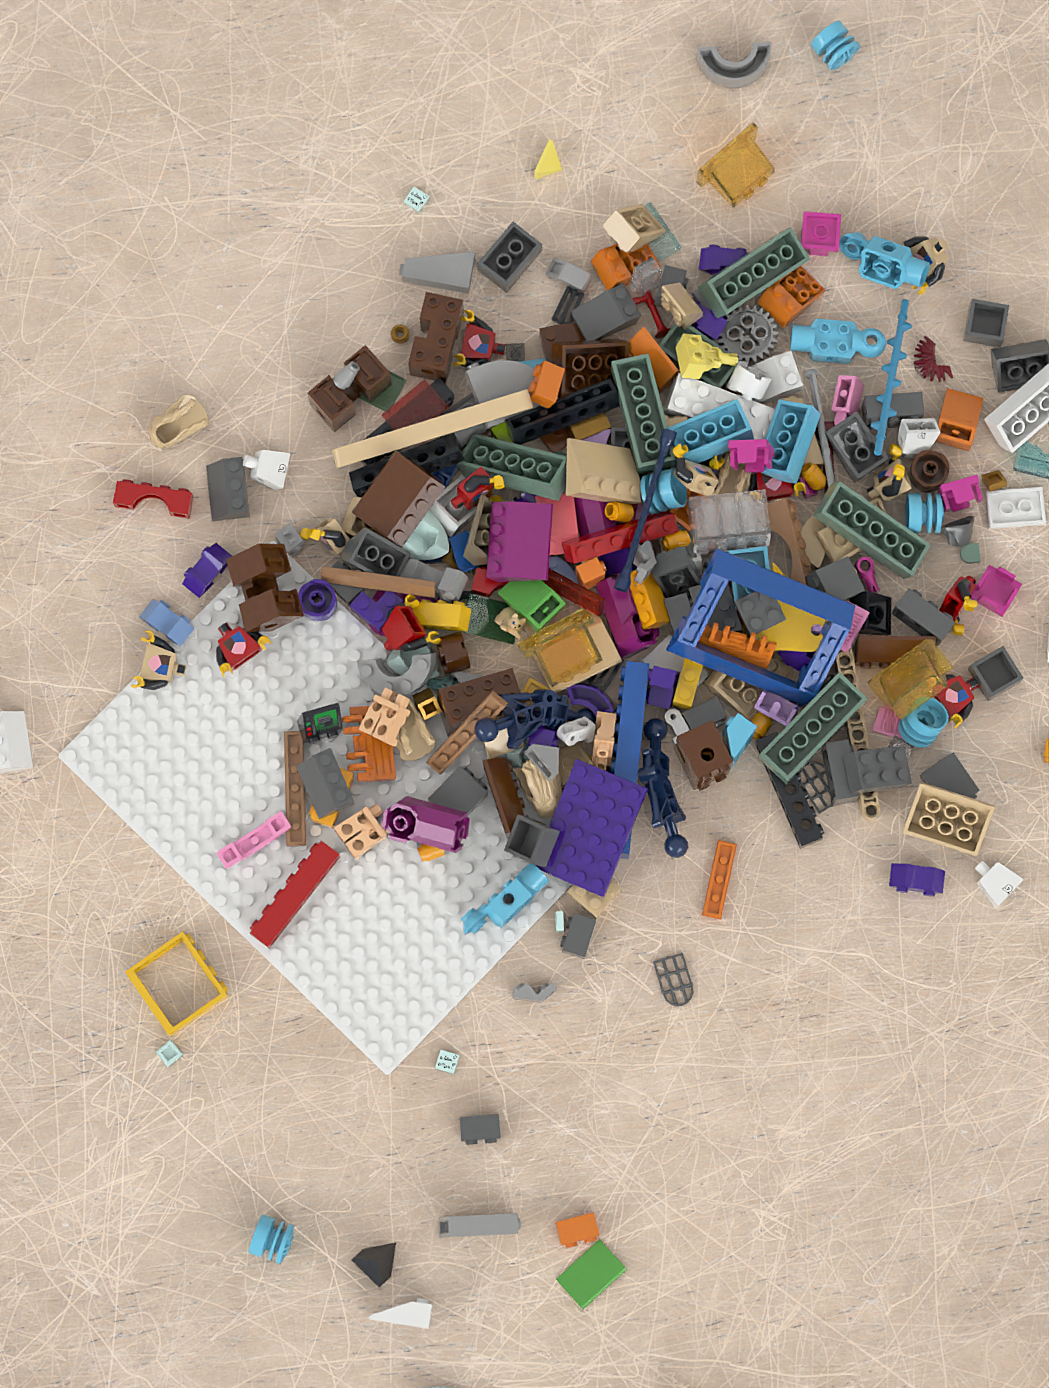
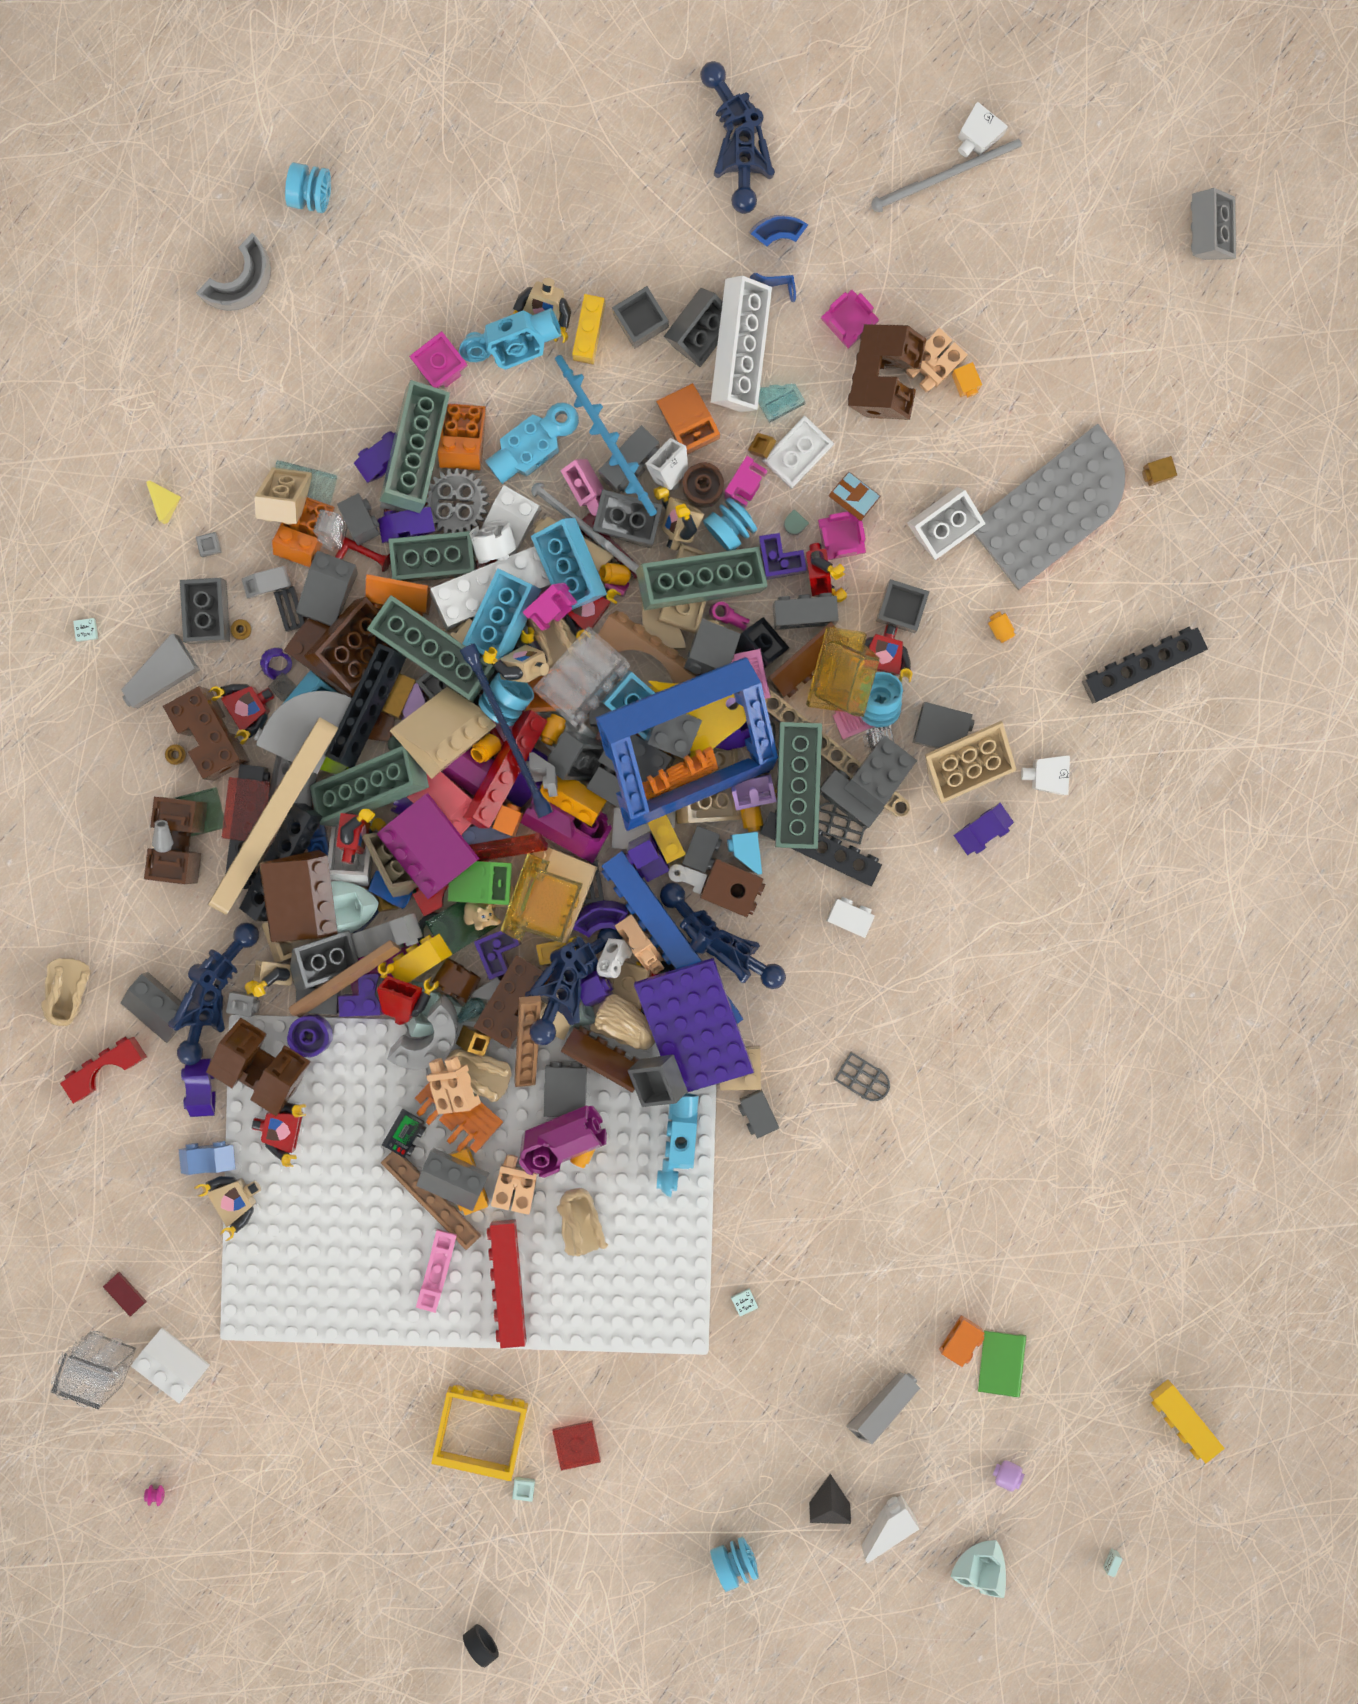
camera: 45 degrees left, 10 degrees up
(21, 665) = (124, 1294): none -> dark red tile
(38, 1134) = (480, 1646): none -> black tyre
(235, 1056) = (576, 1445): none -> clear red tile
(268, 467) = (170, 962): white torso -> none
(272, 509) = (204, 1001): none -> dark blue piece
(384, 897) = (580, 1223): none -> tan hair
(480, 1128) = (817, 1332): dark grey brick -> none
(497, 654) = (491, 952): none -> dark purple brick
(515, 336) = (265, 659): none -> dark purple piece
(522, 296) = (247, 629): none -> pearl gold plate
(523, 1358) = (1008, 1475): none -> lavender head
(526, 993) = (761, 1194): light grey slope -> none
(545, 759) = (609, 1006): light grey slope -> none
(546, 383) = (330, 697): orange brick -> none
(551, 216) = (208, 544): none -> light grey tile
(559, 921) = (734, 1116): light aqua tile -> none
(680, 304) = (380, 528): tan slope -> none
(698, 356) = (434, 559): light yellow brick -> none
(719, 879) = (828, 968): orange tile -> none
(737, 168) = (322, 366): clear yellow windscreen -> none
(767, 856) = (850, 917): none -> white brick
(928, 362) = (622, 393): dark red hair -> none
(934, 568) = (777, 563): none -> dark purple brick
(943, 300) = (588, 329): none -> yellow brick
(959, 531) = (770, 513): dark grey hat -> none
(1028, 570) = (854, 496): none -> tile

